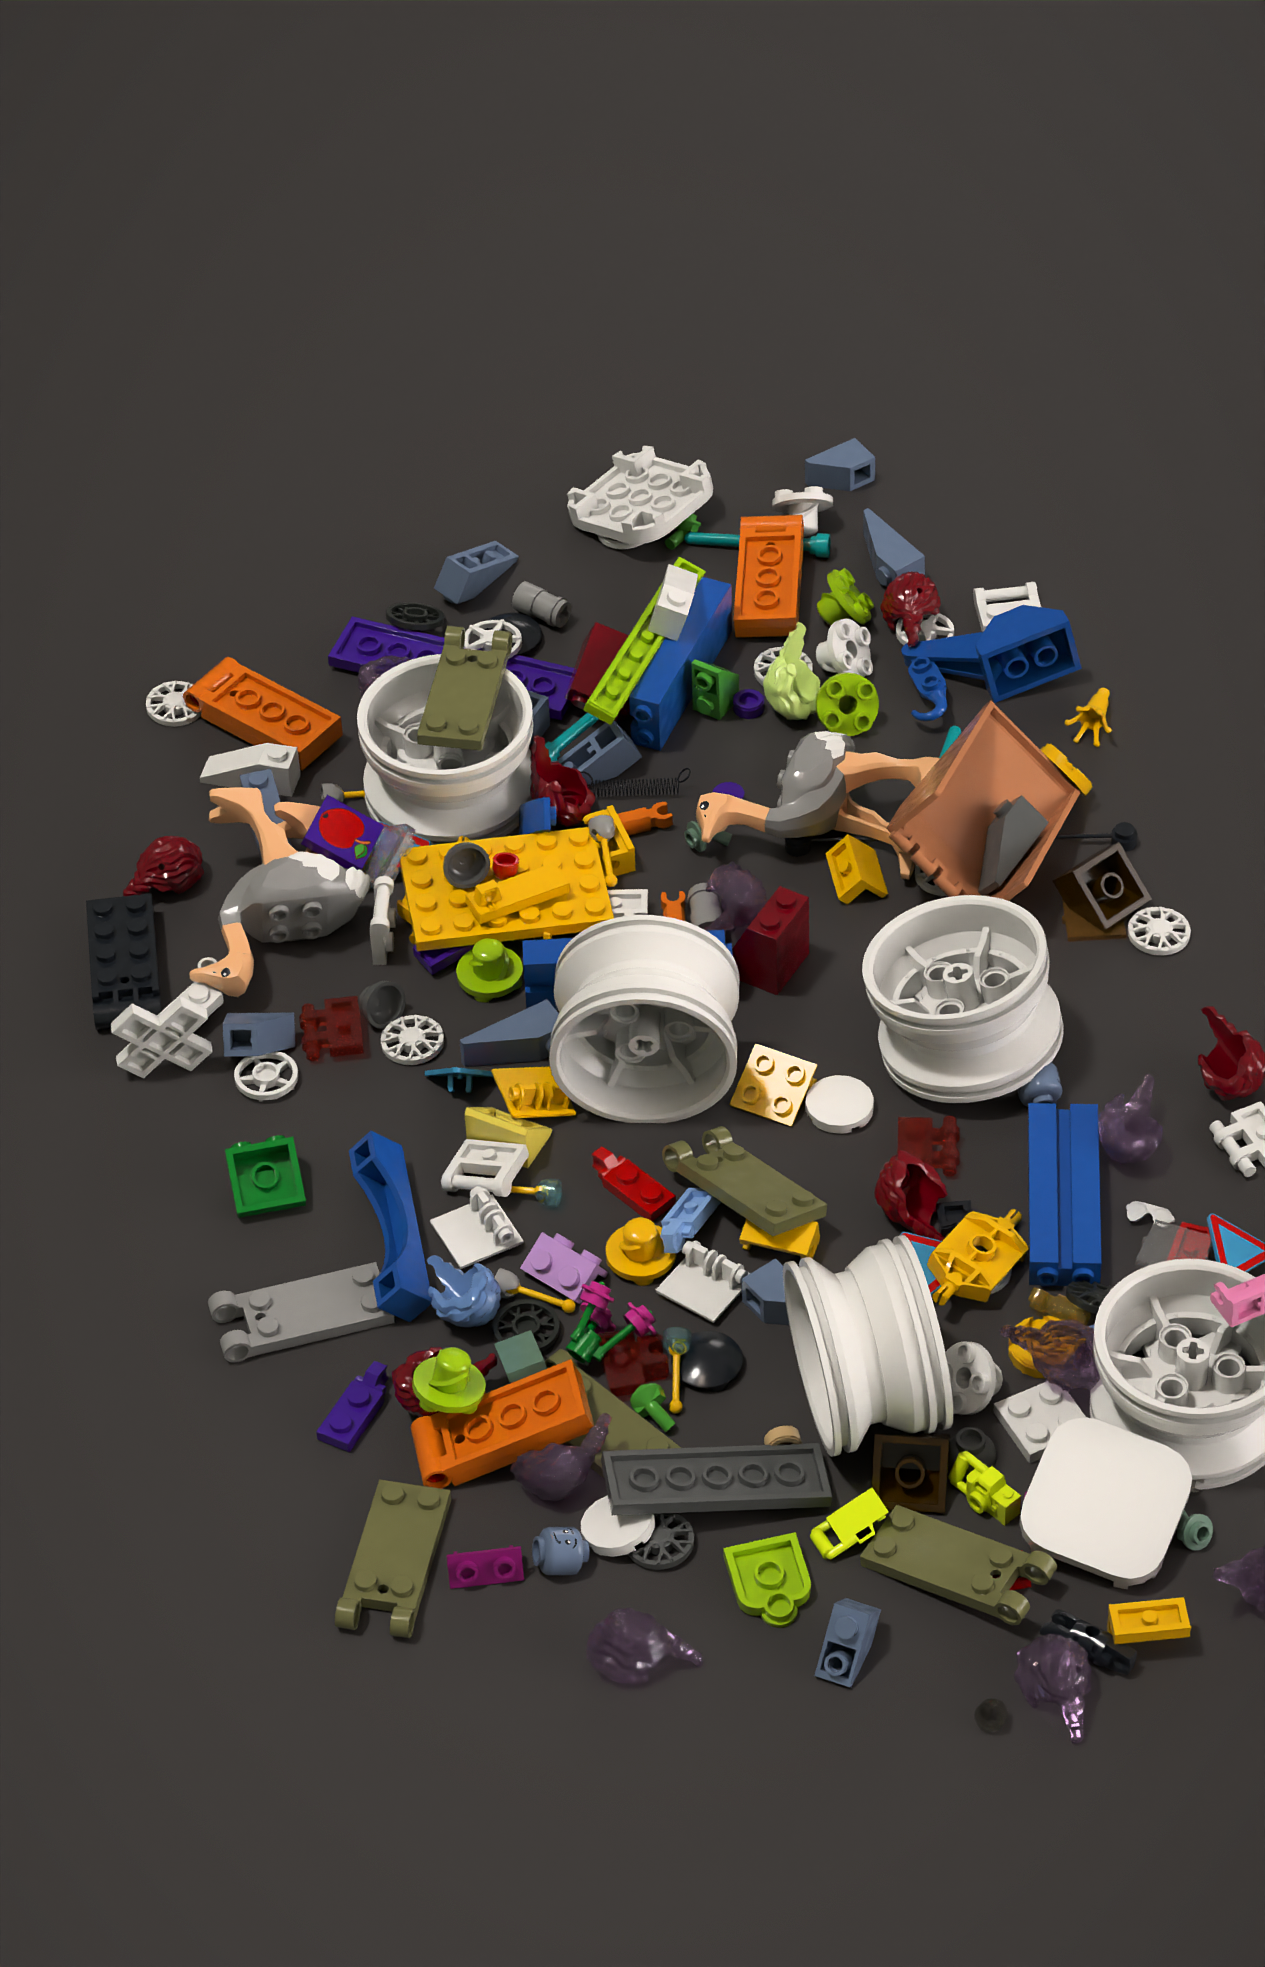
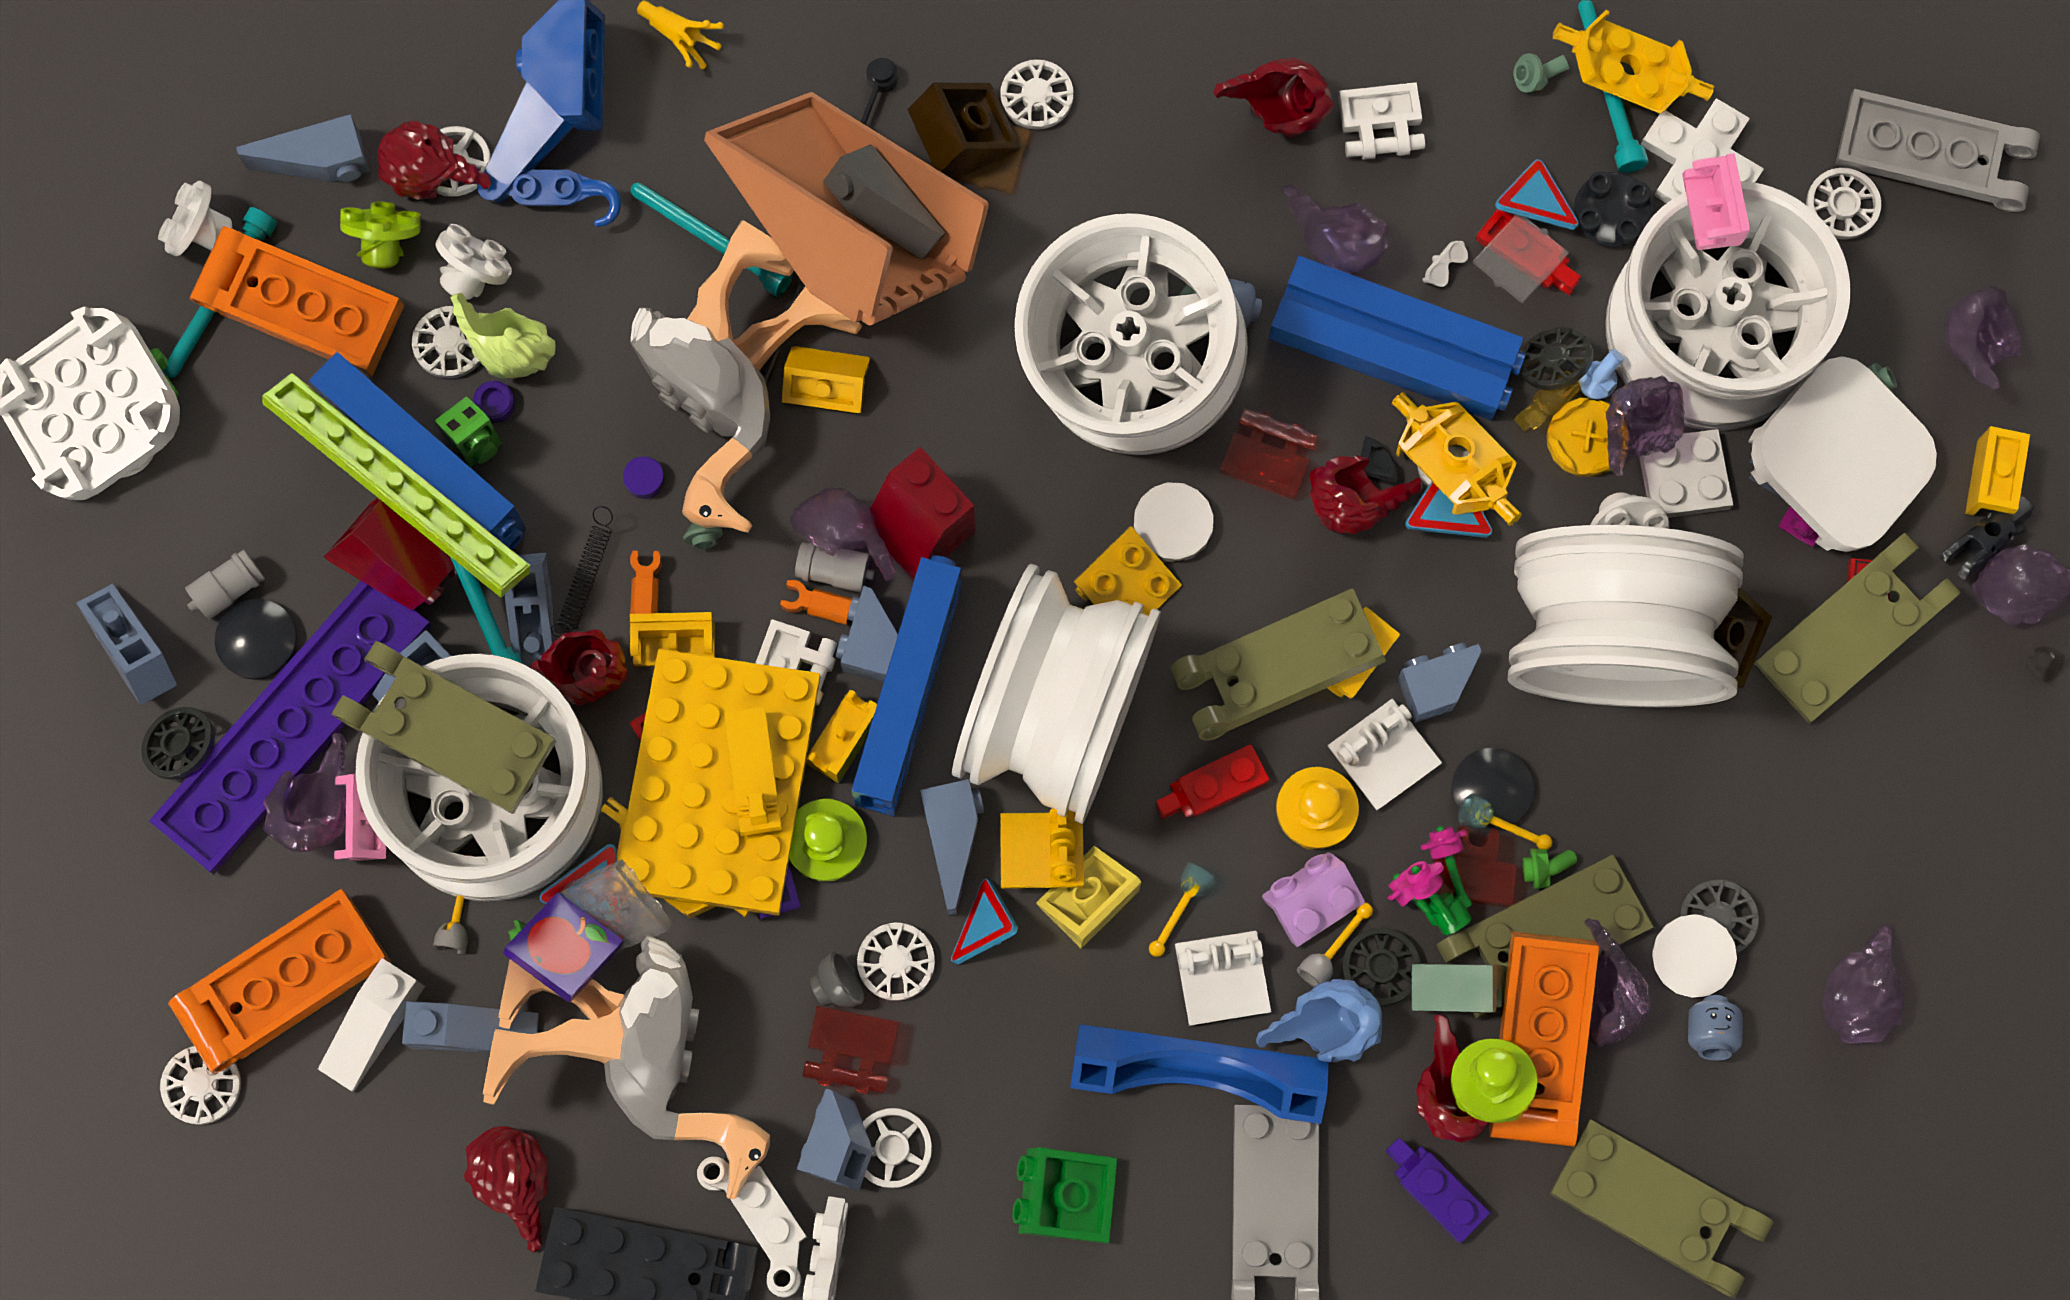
camera: 75 degrees left, 30 degrees up
(383, 919) = (712, 941): white plate -> none
(466, 865) = (693, 818): dark grey piece -> none
(485, 1158) = (1132, 930): white plate -> none
(485, 1567) = (1705, 1096): magenta hinge -> none
(486, 636) = (273, 663): white wheel -> none
(505, 865) = (704, 767): red hinge -> none
(536, 816) = (621, 710): blue slope -> none
(602, 830) = (675, 641): hinge -> none
(673, 602) = (355, 426): white slope -> none
(686, 1218) = (1299, 743): light blue hinge -> none
(715, 1479) = (1681, 836): dark grey plate -> none
(769, 1578) = (1809, 822): lime plate -> none
(782, 1435) = (1640, 747): tan tile -> none
(841, 467) = (132, 148): sand blue slope -> none
(847, 704) = (562, 292): lime plate -> none
(847, 1641) = (1919, 770): sand blue slope -> none
(848, 1522) = (1771, 716): neon yellow piece -> none
(985, 1488) = (1773, 563): neon yellow piece -> none
(987, 612) = (470, 57): white plate -> none
(1071, 772) = (774, 93): yellow tile -> none

